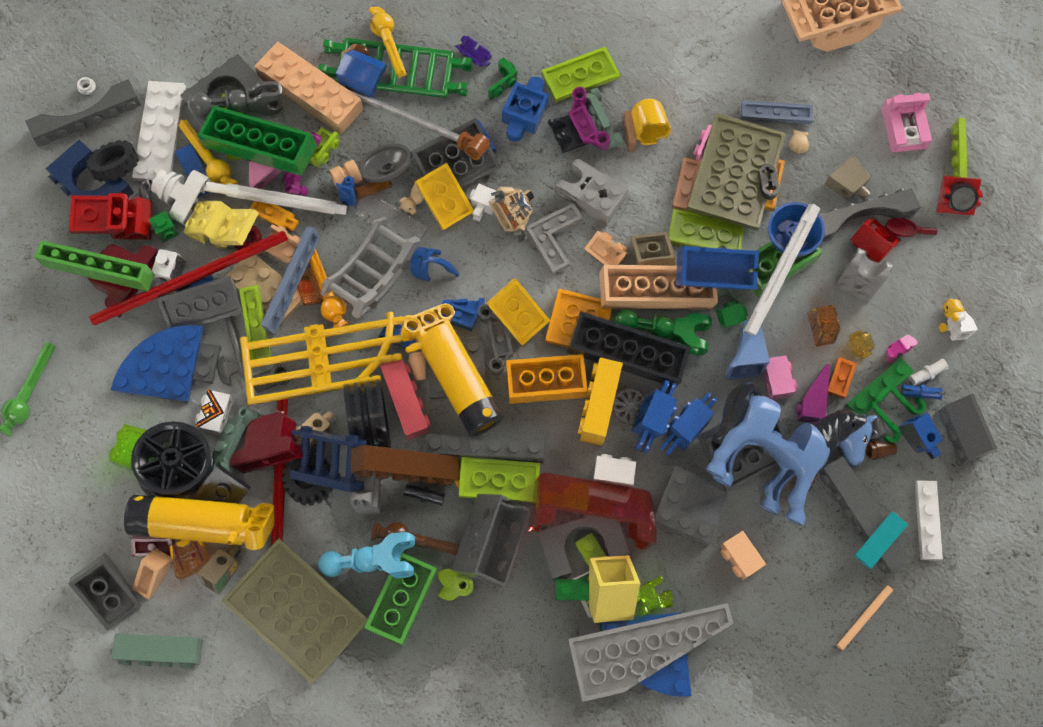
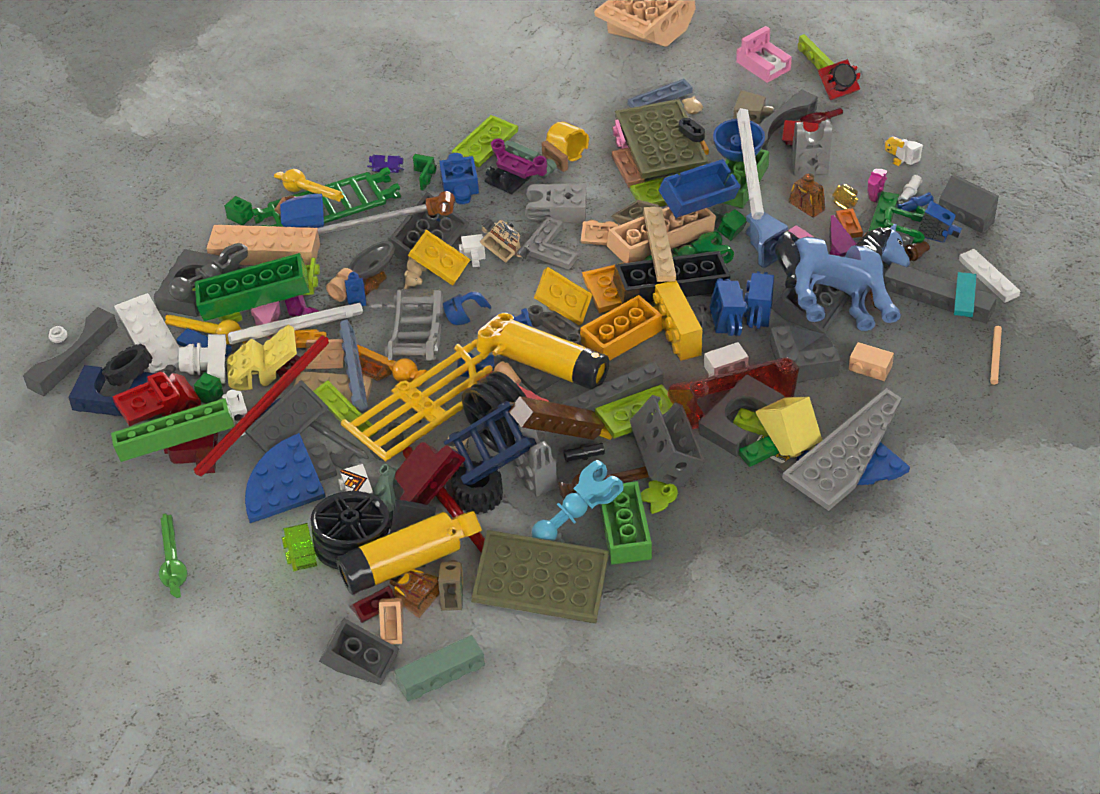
camera: 25 degrees left, 25 degrees down
(315, 31) = (239, 210): none -> green brick
(636, 311) = (659, 244): none -> tan plate
(651, 599) = (828, 423): clear neon green animal -> none

